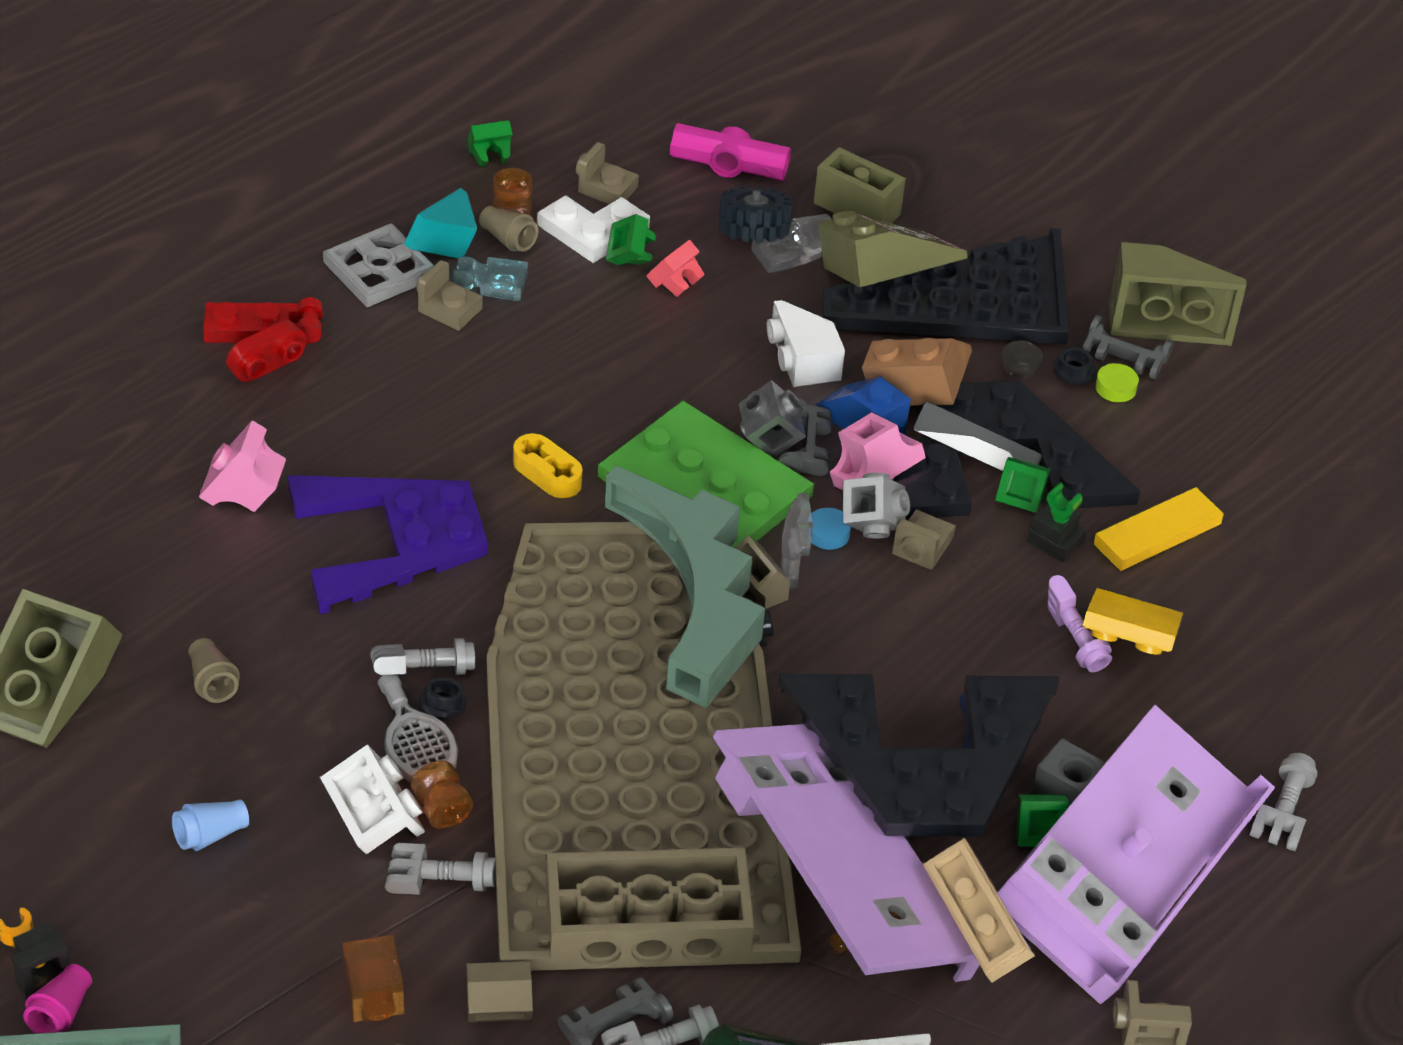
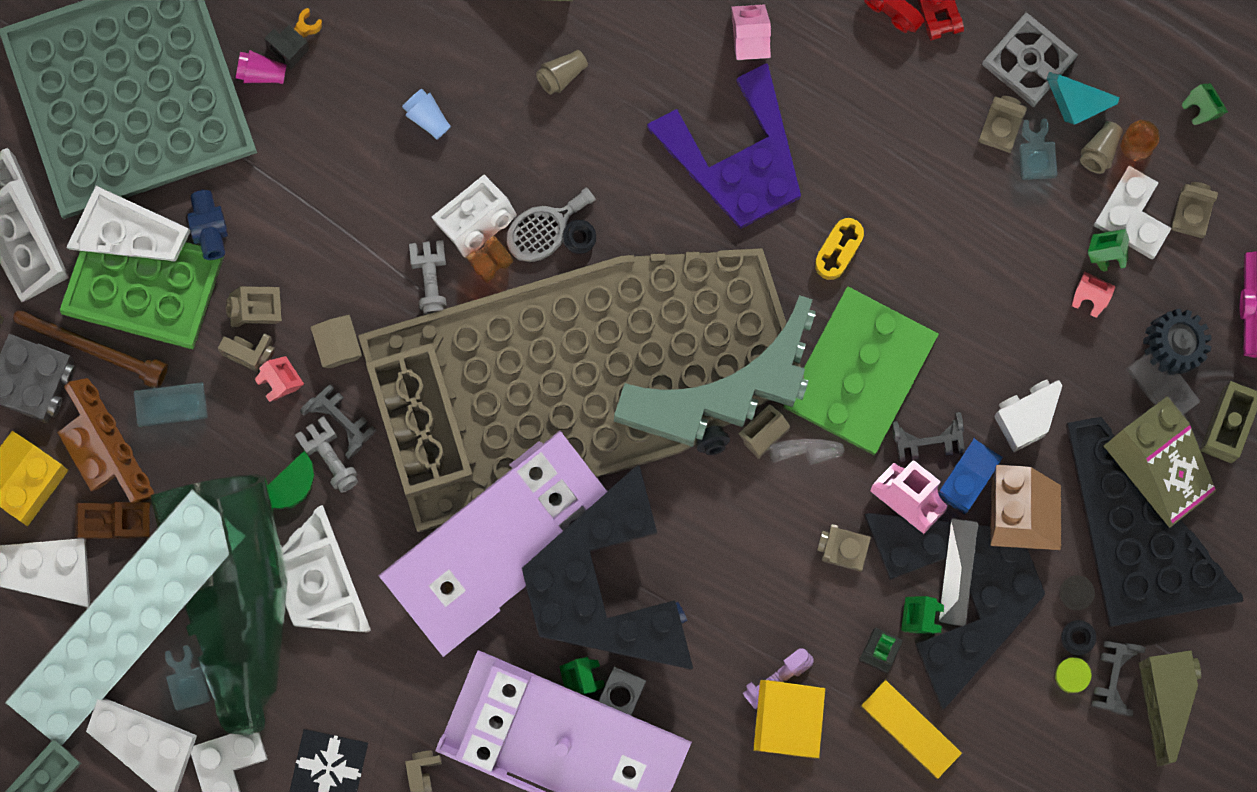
camera: 80 degrees right, 35 degrees up
(373, 978) = (323, 259): clear orange brick -> none
(395, 660) = (607, 191): light grey hinge -> none
(772, 419) = (928, 406): flat silver brick -> none
(828, 529) = (835, 474): dark azure tile -> none
(874, 504) = (848, 503): light grey brick -> none
(978, 910) = (465, 643): tan tile -> none

